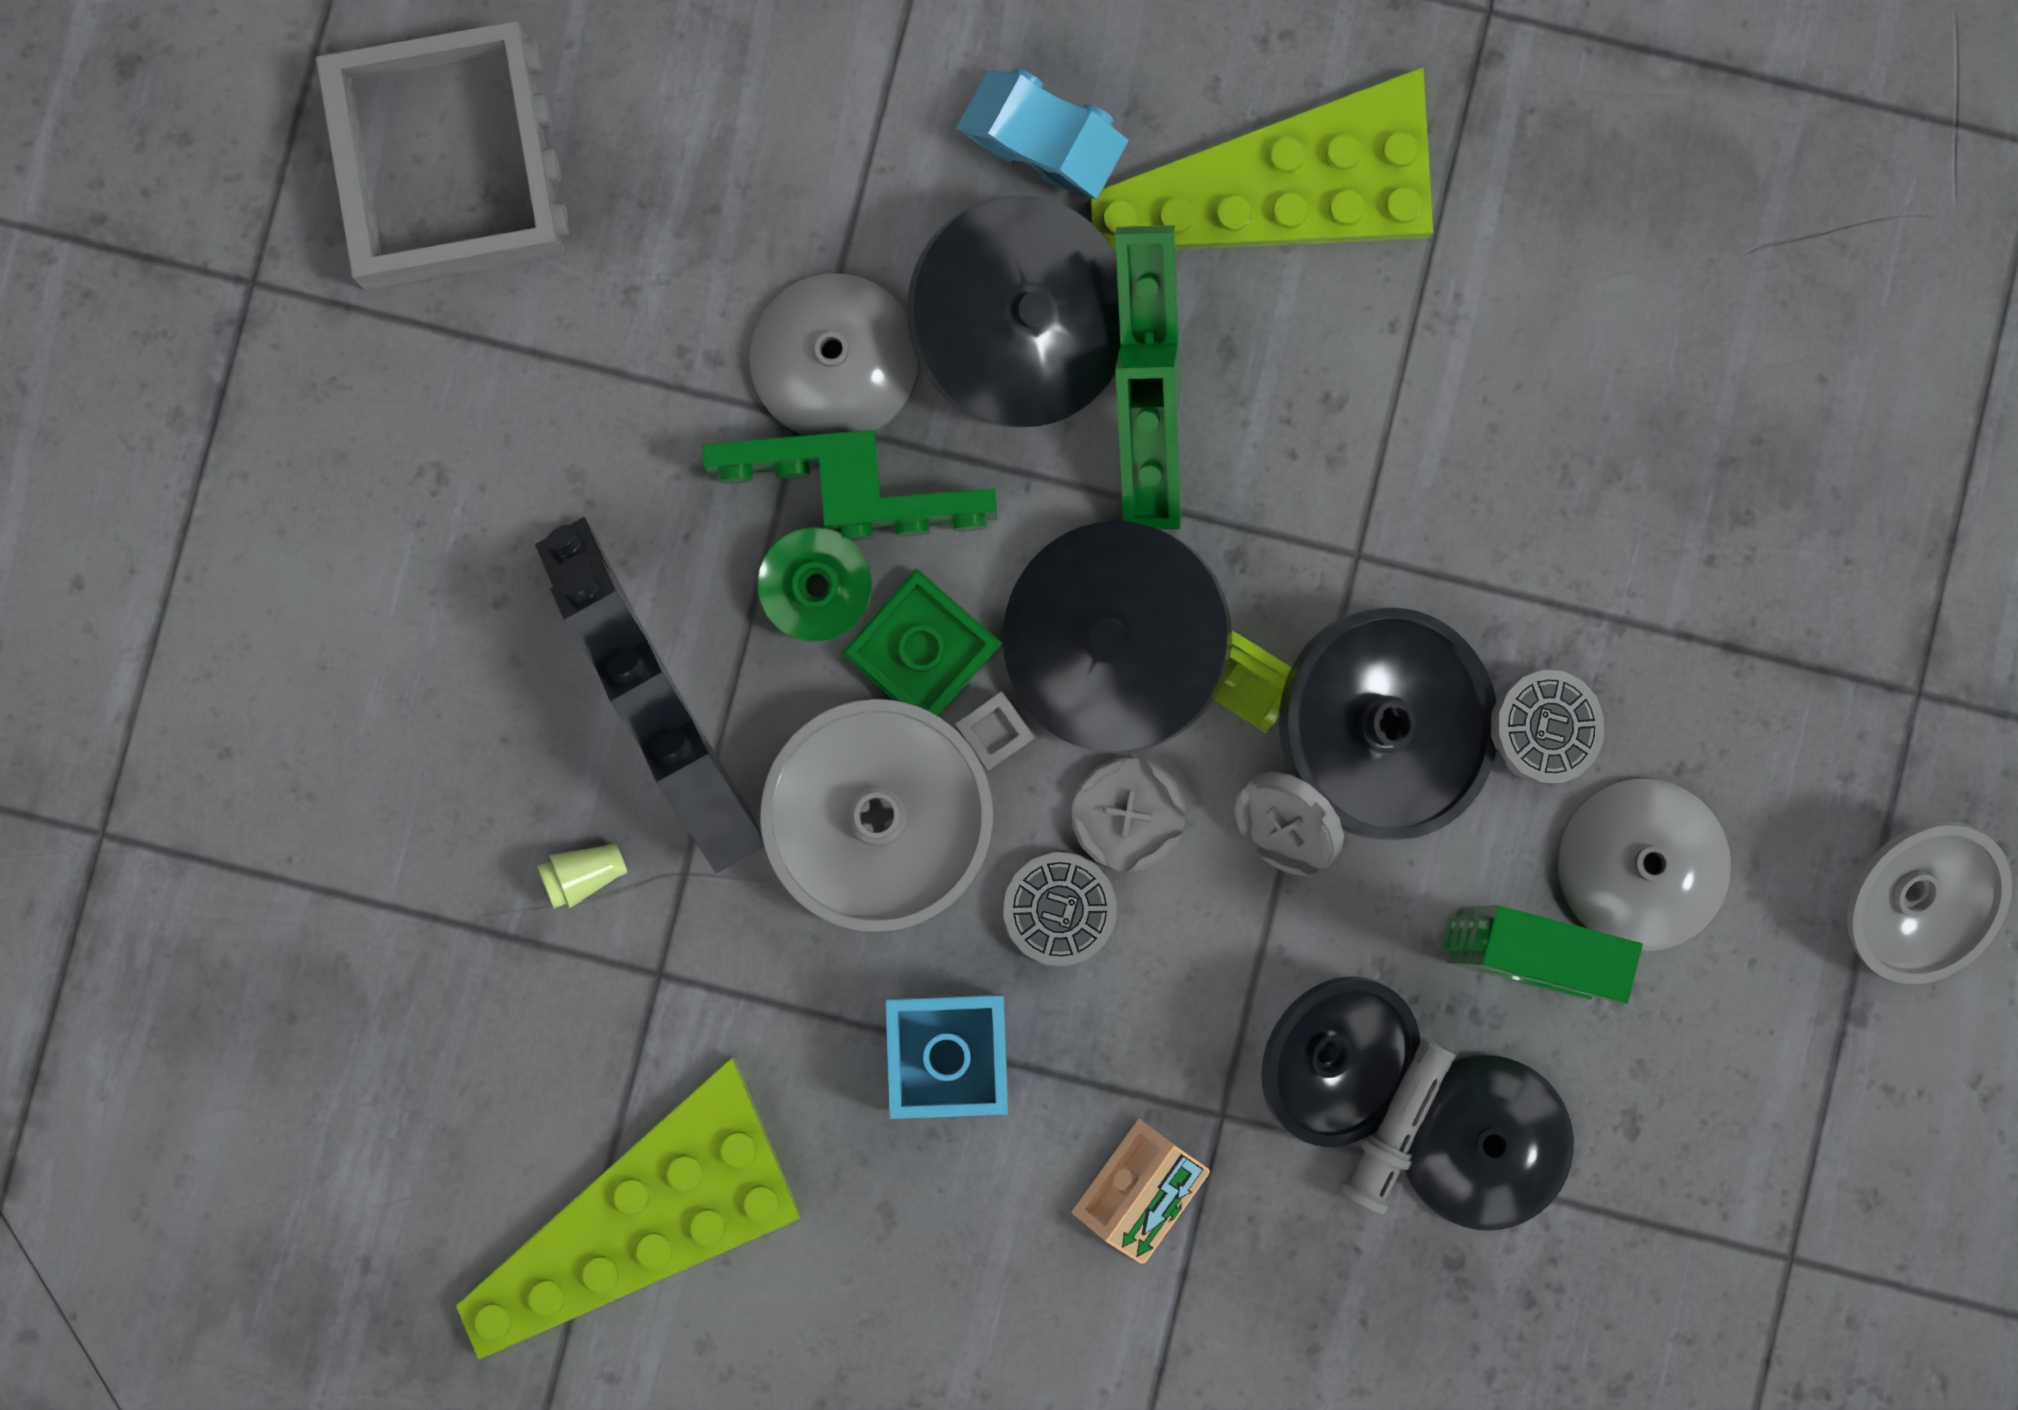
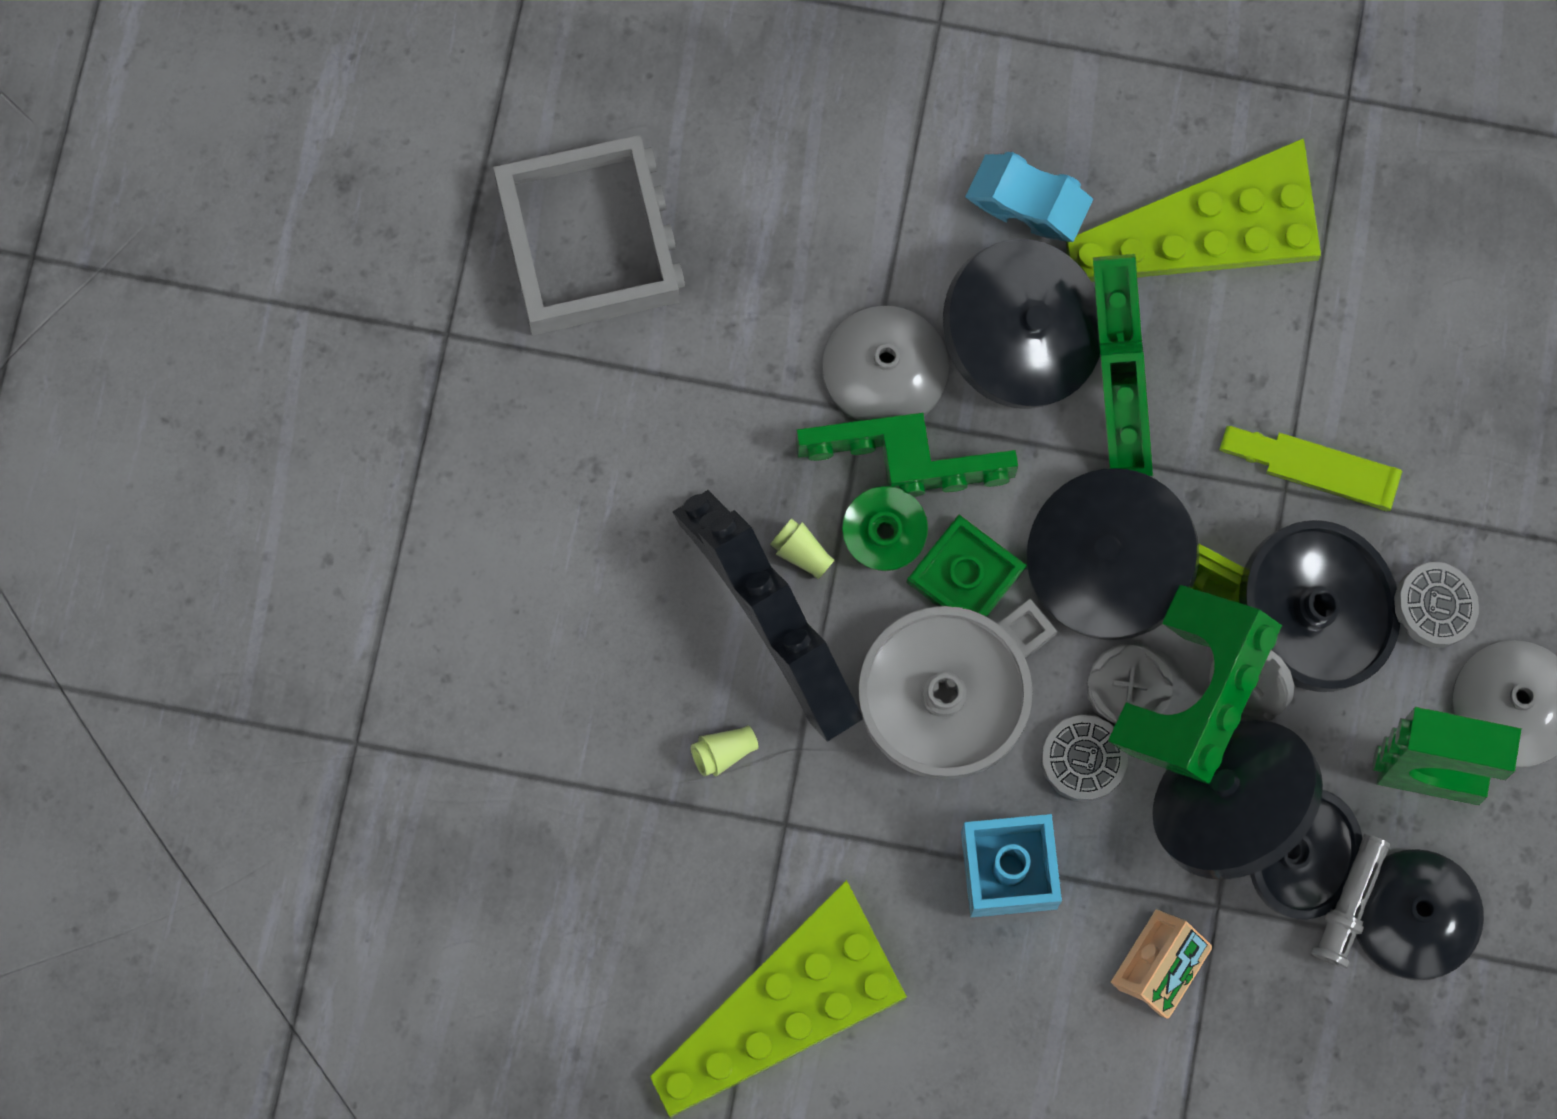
camera: 10 degrees left, 10 degrees down
(702, 605) = (801, 548): none -> yellowish green cone
(1255, 990) = (1251, 809): none -> black dish
(1269, 789) = (1197, 737): none -> green arch
(1403, 525) = (1316, 466): none -> lime piece

